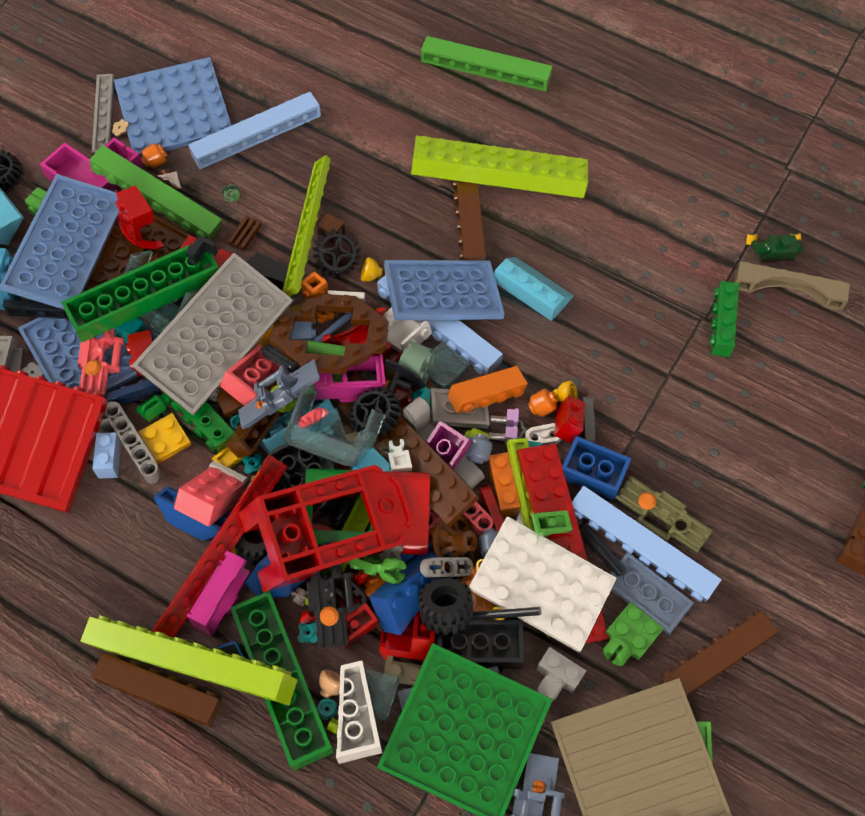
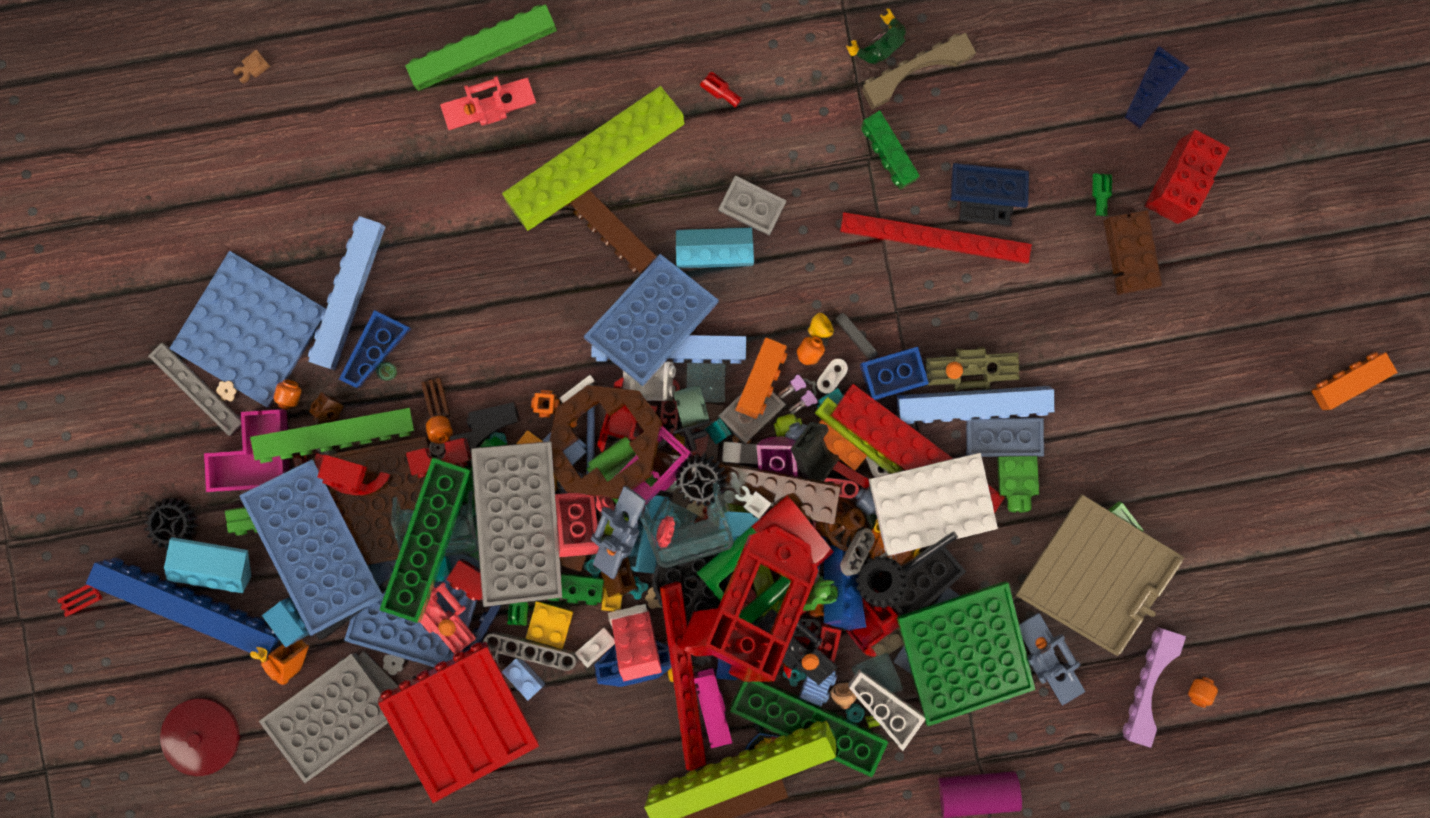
camera: 40 degrees left, 25 degrees up
(176, 478) = (595, 647): none -> white plate
(199, 248) = (442, 475): black bracket -> none
(228, 244) = (439, 429): none -> orange head
(238, 169) = (375, 344): none -> blue wedge
(279, 358) = (588, 500): black axle -> none
(306, 226) = (485, 353): lime plate -> none
(314, 659) = (817, 693): none -> light blue brick
(328, 251) = (546, 350): black gear -> none
(329, 222) = (503, 335): reddish brown brick -> none
(370, 270) = (572, 347): yellow brick -> none
(457, 99) = (487, 110): none -> coral piece
(478, 462) = (812, 453): none -> pearl dark grey panel
(551, 523) = (905, 455): bright green slope -> none
(558, 674) = (992, 555): light grey brick -> none
(569, 419) = (843, 350): red brick -> none
(586, 280) = (752, 205): none -> light grey plate
(603, 552) = (950, 435): black axle -> none
(628, 195) = (719, 89): none -> red arm
(714, 407) = (935, 238): none -> red plate
(722, 653) = (1090, 444): reddish brown brick -> none
(768, 416) = (985, 213): none -> black plate
(787, 399) = (990, 185): none -> dark blue tile

